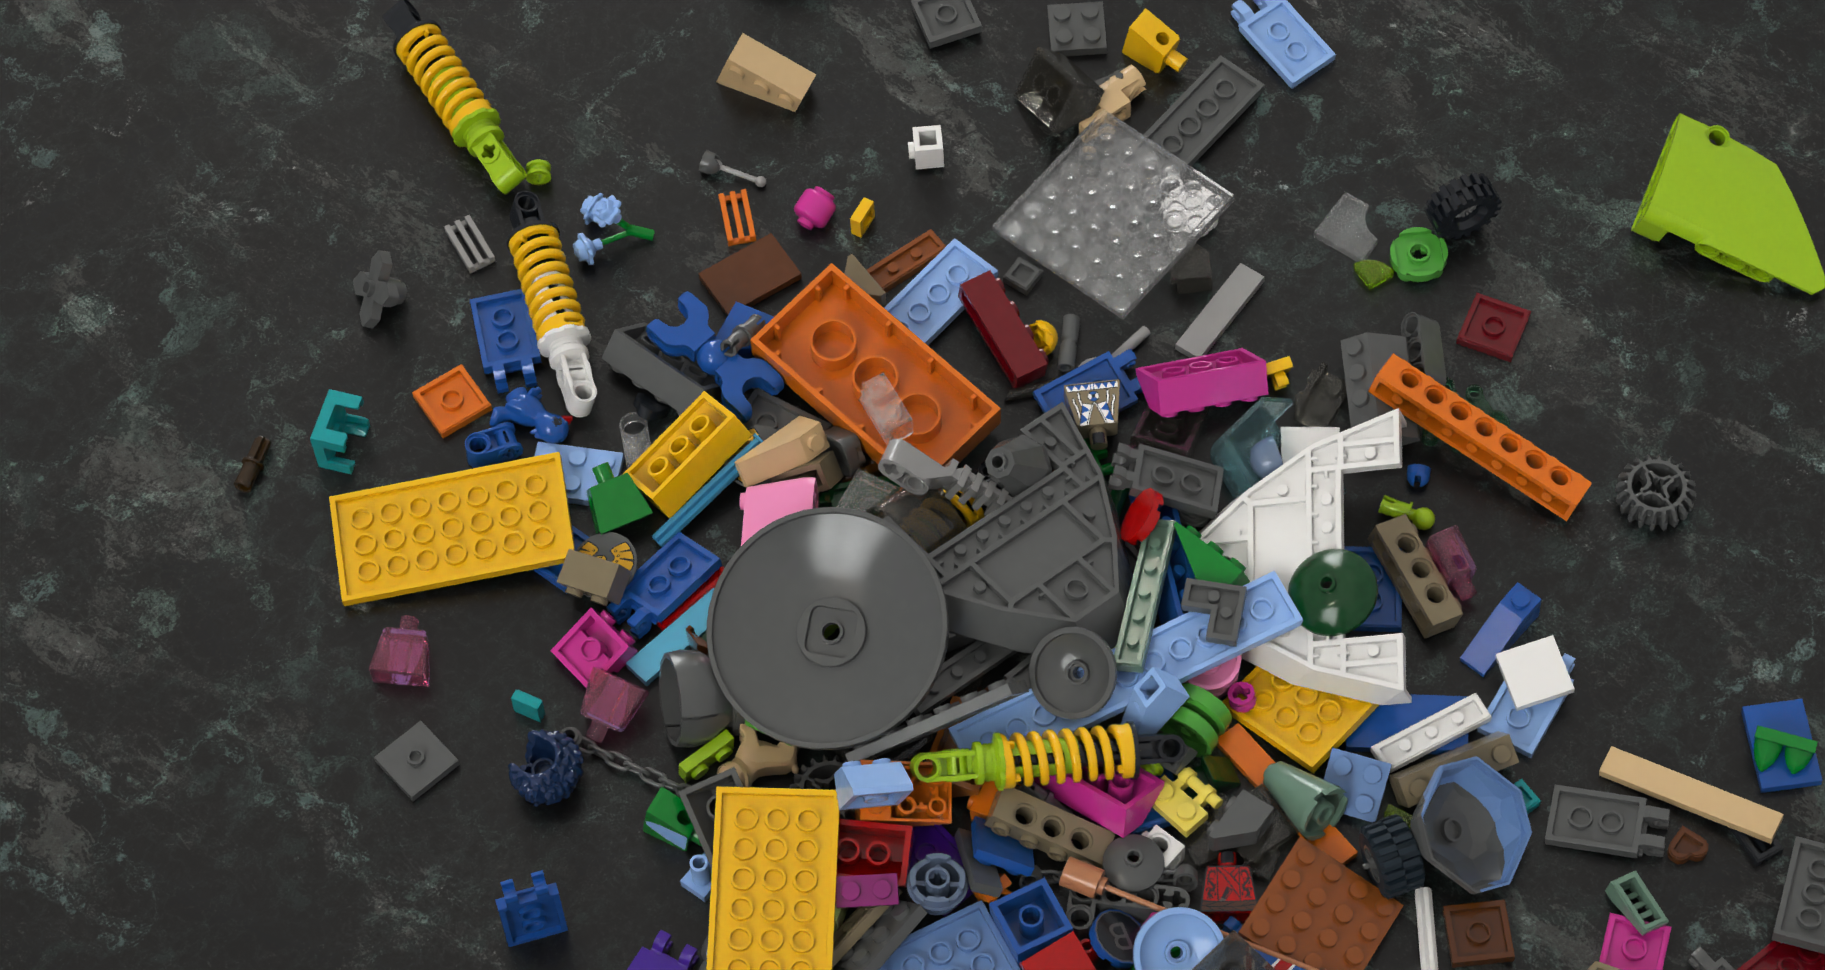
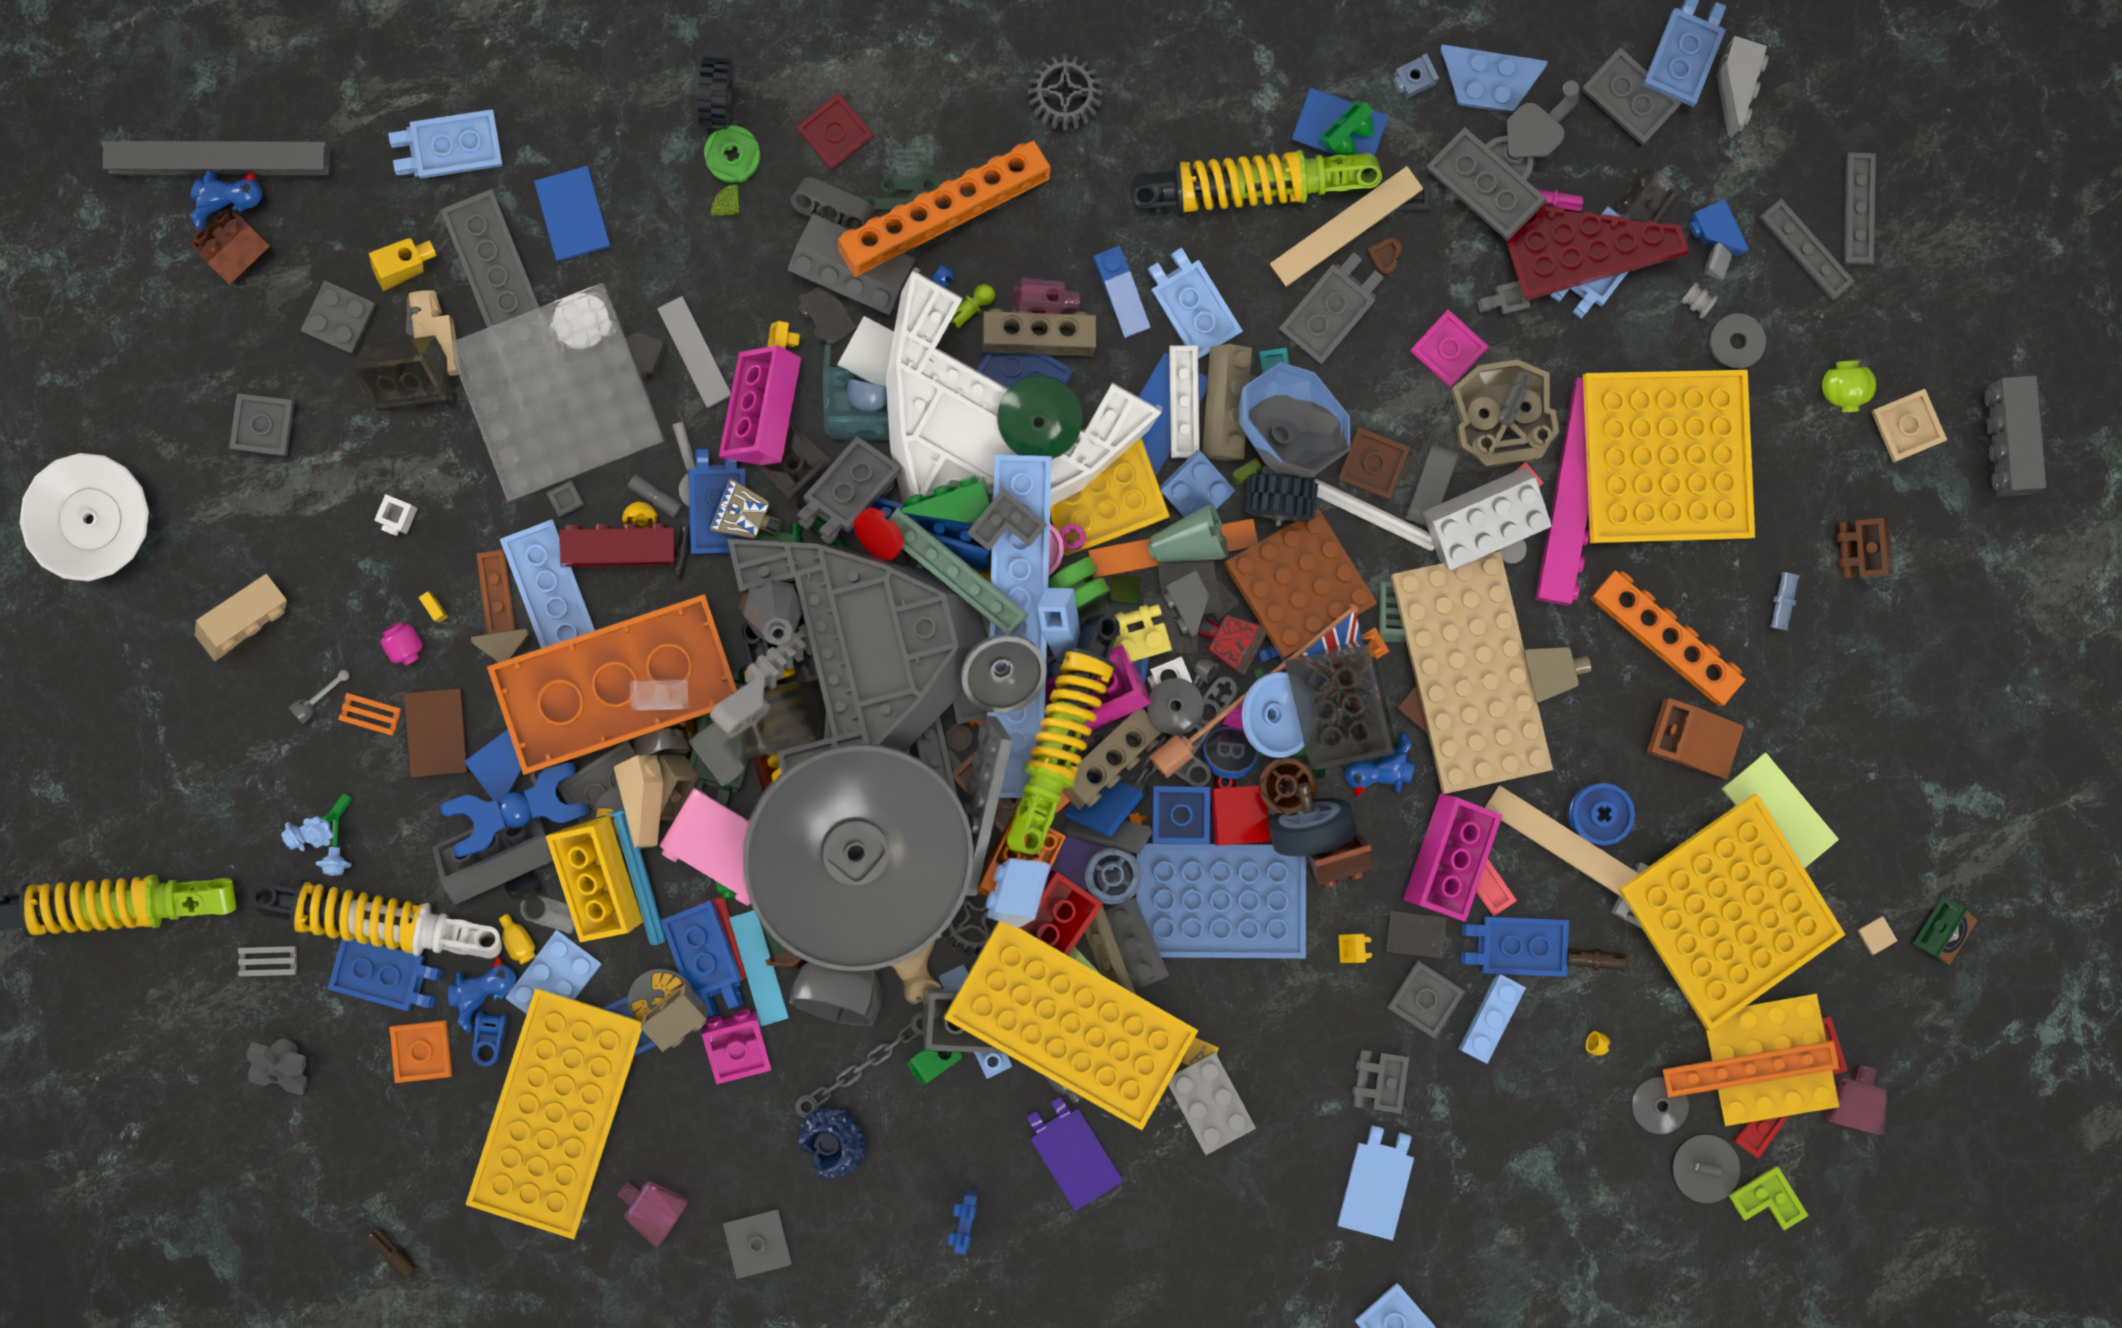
camera: 65 degrees left, 25 degrees up
(331, 429) = (400, 1173): teal panel -> none
(528, 705) = (758, 1127): teal tile -> none
(538, 172) = (227, 866): lime bush -> none
(595, 426) = (517, 941): none -> yellow plant
(610, 703) = (796, 1058): clear pink torso -> none
(615, 500) = (606, 962): green torso -> none
(715, 750) = (890, 1013): lime plate -> none
(741, 335) = (510, 776): dark grey pin -> none
(867, 890) = (1092, 937): magenta plate -> none
(1283, 159) = (572, 214): none -> blue tile
(1346, 228) = (671, 199): clear tile -> none
(1534, 673) = (1181, 289): white tile -> none
(1638, 890) = (1417, 334): sand green slope -> none
(1677, 689) = (1279, 178): none -> piece

